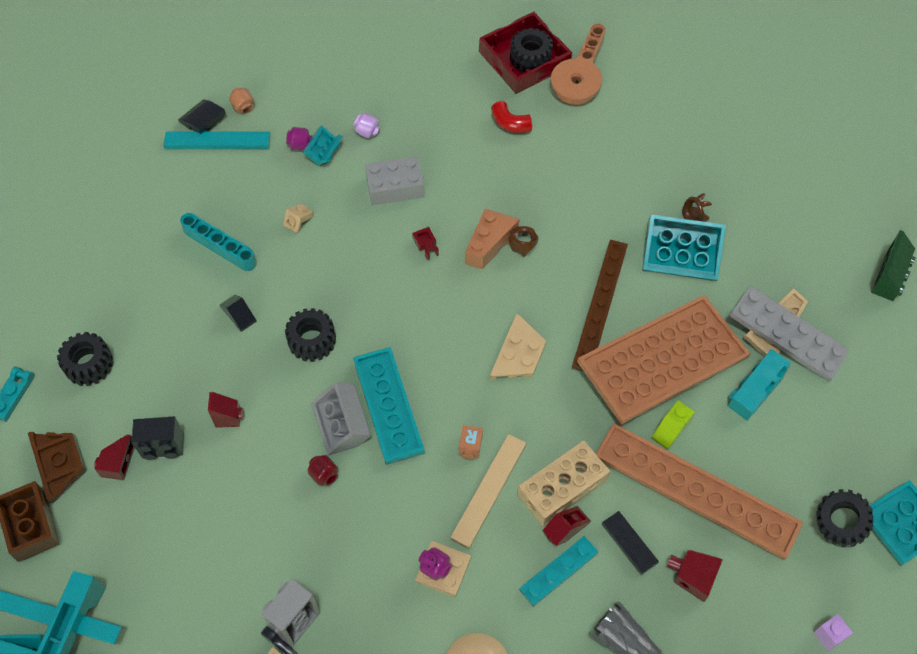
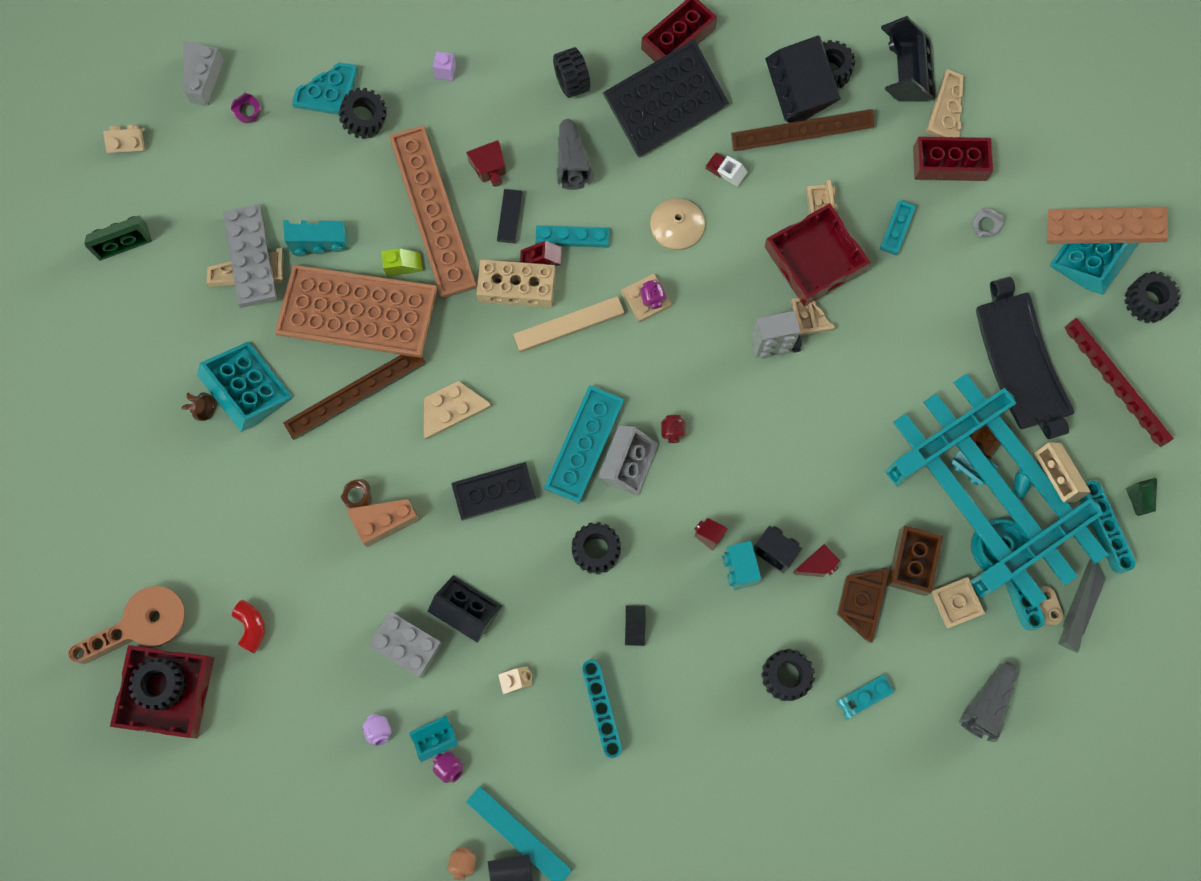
camera: 140 degrees left, 15 degrees up
(178, 402) = (741, 565): none -> teal brick
(375, 231) = (464, 608): none -> black slope
(425, 240) = (433, 564): dark red plate -> none
(427, 318) = (493, 491): none -> black plate
(470, 442) = (551, 364): nougat brick -> none

